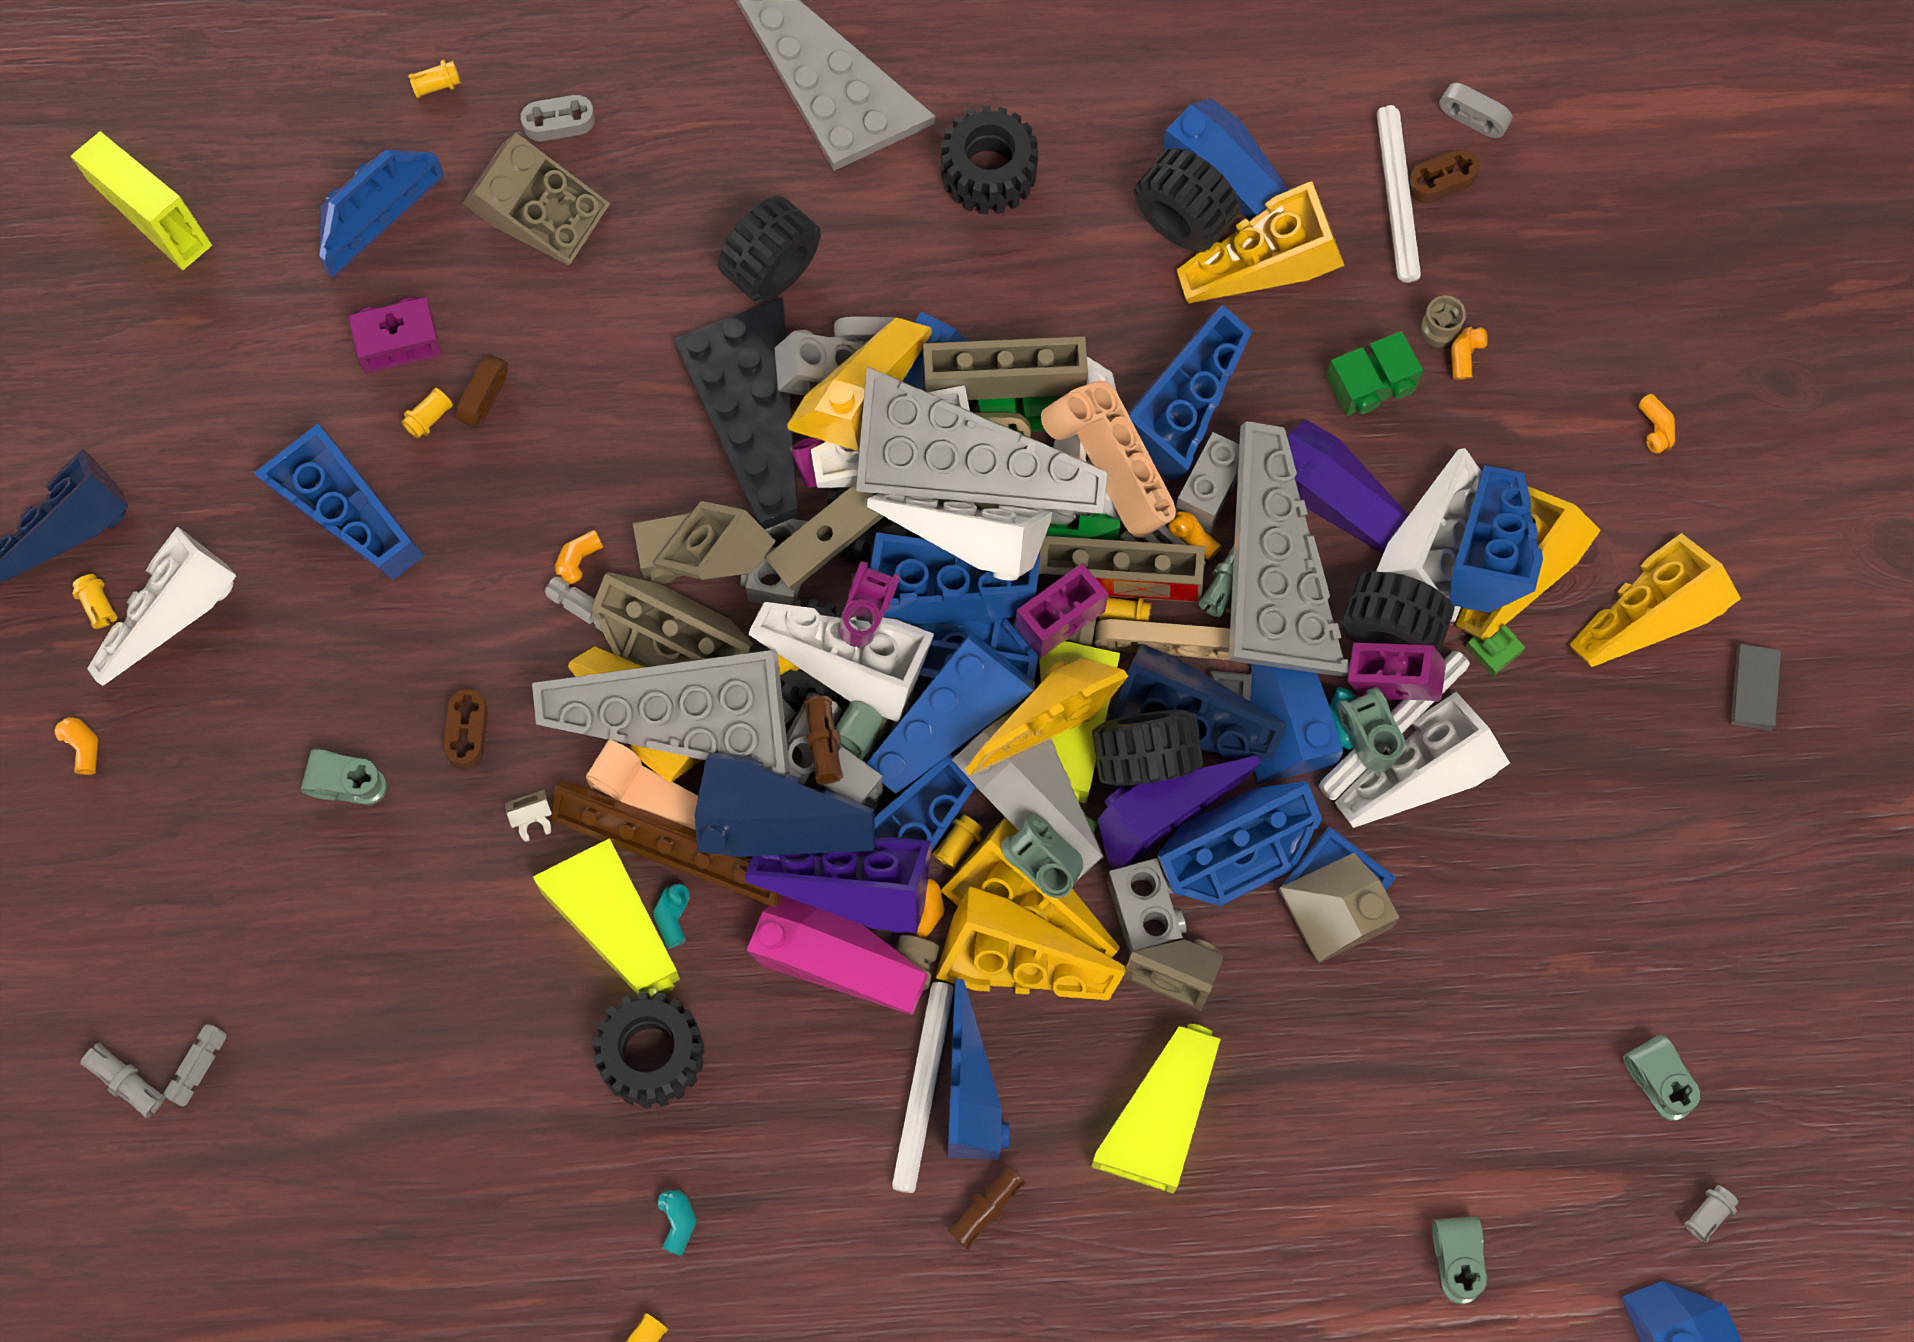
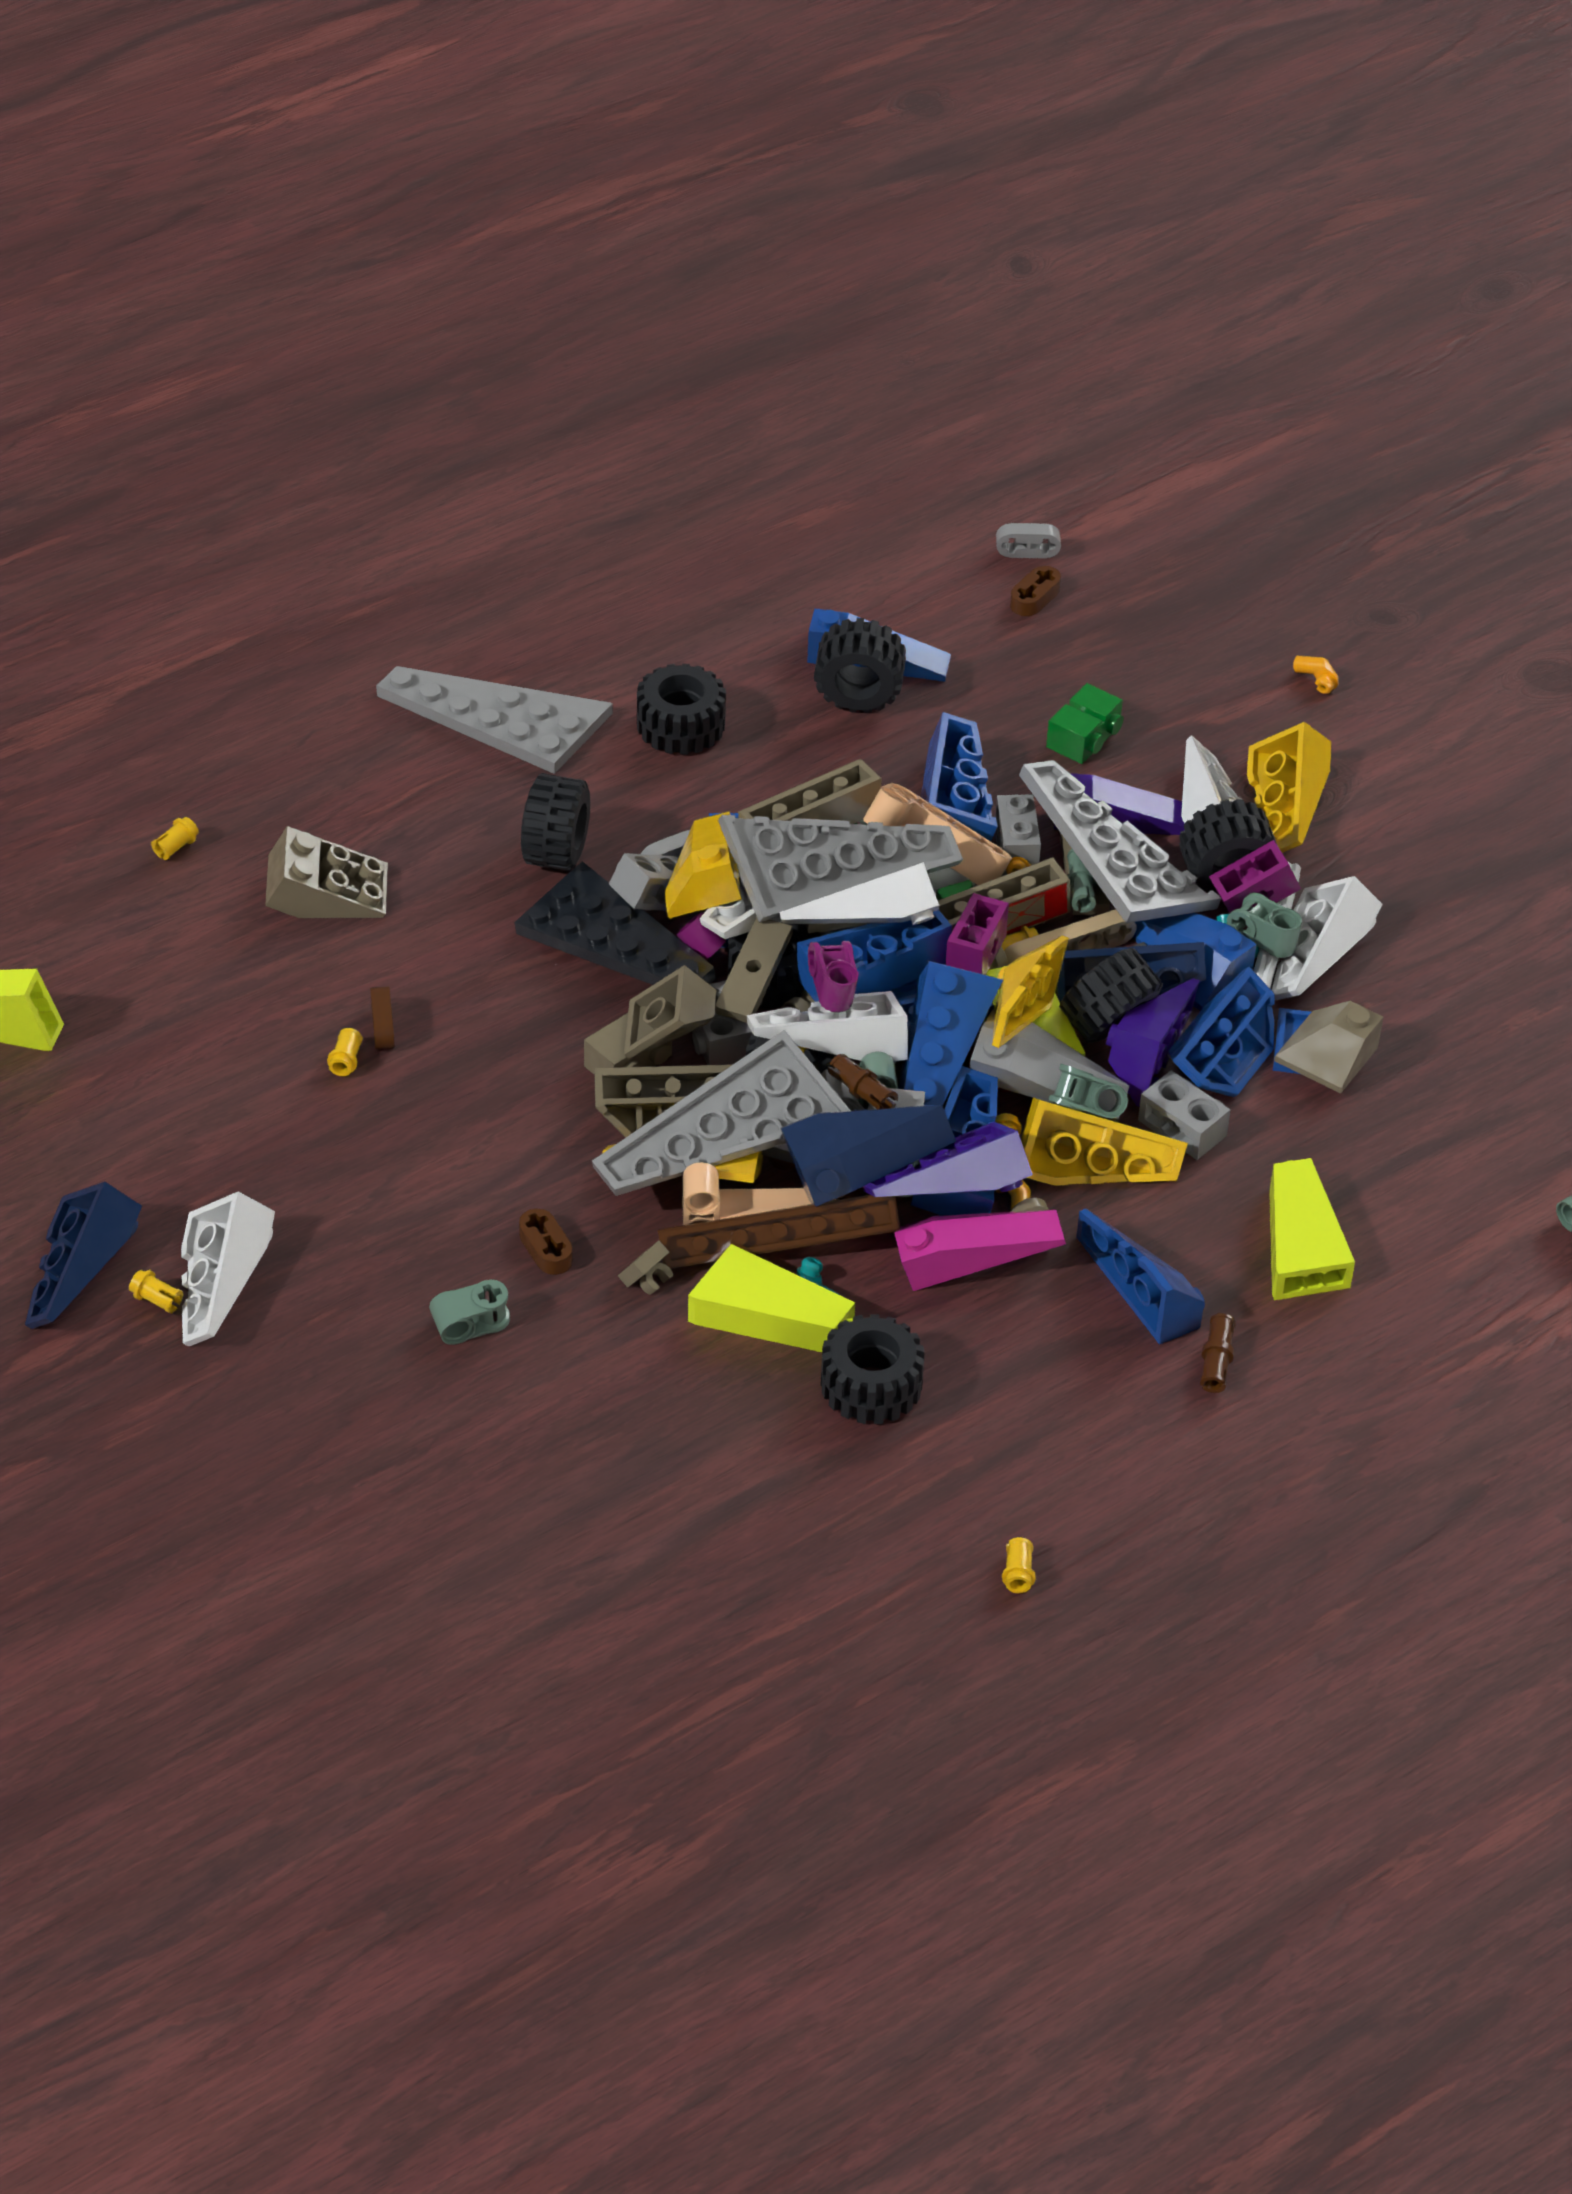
camera: 30 degrees left, 25 degrees down
(83, 740) = (224, 1389): light orange arm -> none
(122, 1080) = (443, 1594): light grey pin -> none
(195, 1065) = (496, 1559): light grey axle -> none
(332, 493) = (326, 1130): blue wedge -> none
(372, 202) = (188, 931): blue wedge -> none
(381, 349) = (278, 1010): magenta brick -> none
(557, 118) = (309, 816): light grey beam -> none
(572, 554) = (544, 1092): light orange arm -> none
(572, 599) = (574, 1122): light grey axle -> none
(681, 1218) = (985, 1472): teal arm -> none
(923, 1087) = (1106, 1306): white axle -> none
(1009, 946) = (1116, 1179): yellow wedge -> none
(1177, 970) = (1241, 1140): dark tan slope -> none
(1274, 249) = (950, 673): yellow wedge -> none
(1398, 194) = (1011, 613): white axle -> none
(1445, 312) = (1110, 670): dark tan wheel -> none
(1463, 348) = (1138, 687): light orange arm -> none
(1496, 650) = (1313, 852): bright green tile -> none
(1499, 545) = (1267, 777): blue wedge -> none
(1674, 594) = (1409, 765): yellow wedge -> none
(1755, 687) = (1516, 797): dark grey tile -> none

